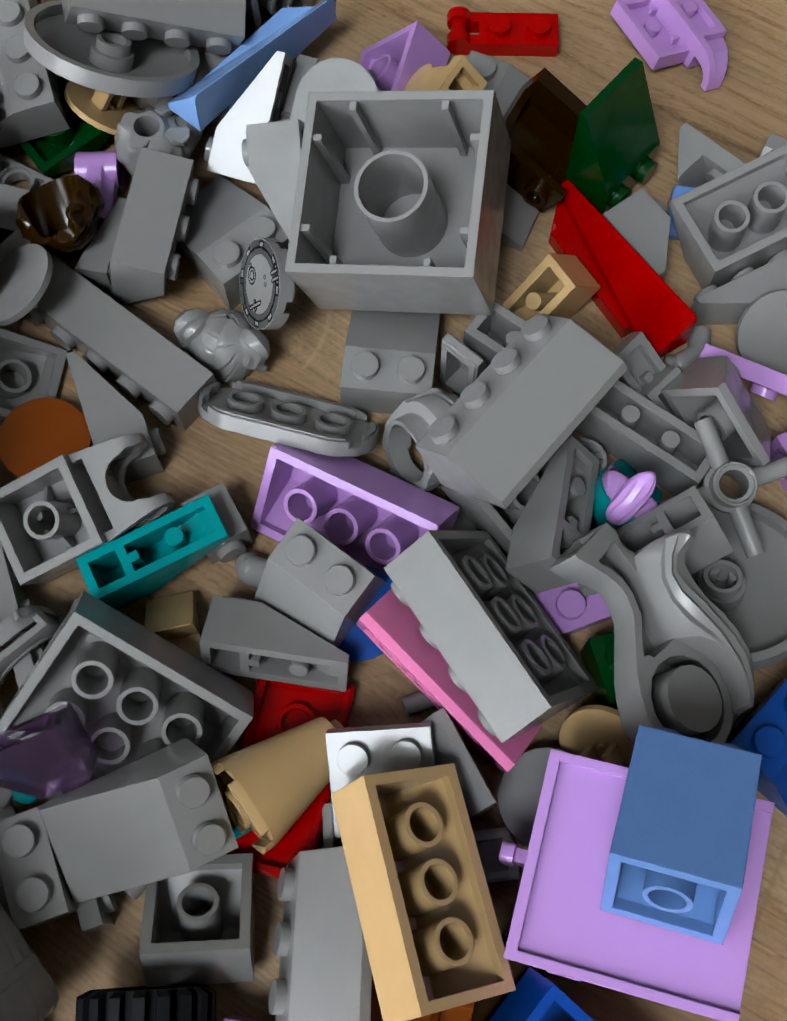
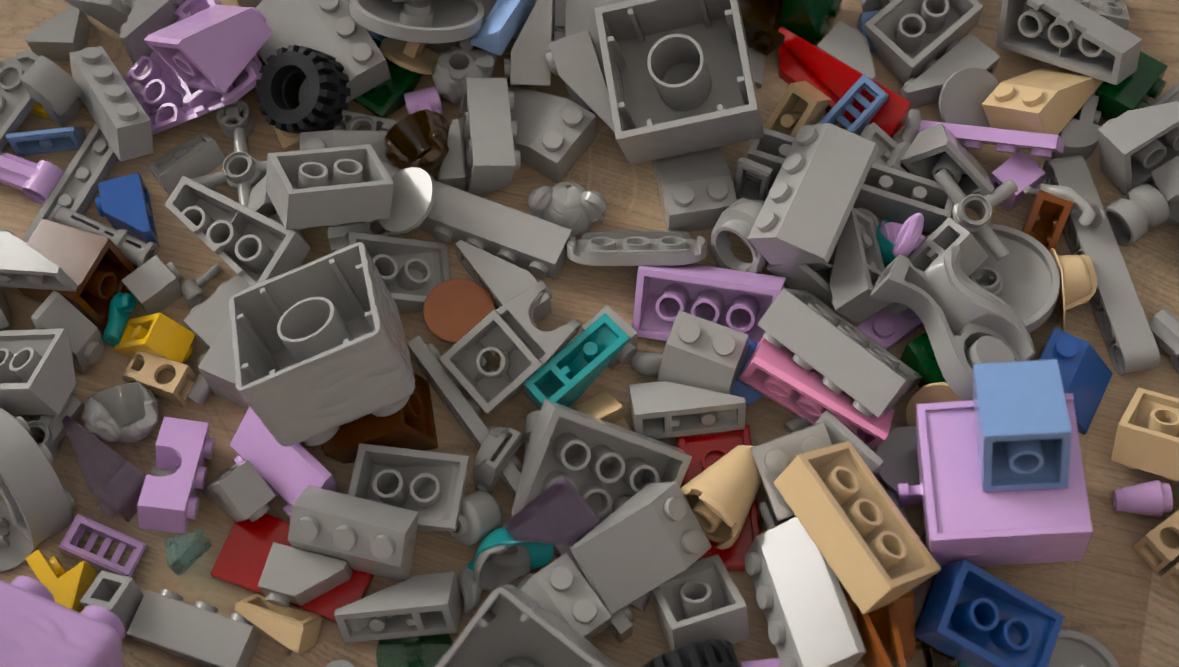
camera: 15 degrees left, 5 degrees down
(265, 284) = (593, 154): light grey tile -> none
(613, 298) = (845, 102): none -> medium blue slope

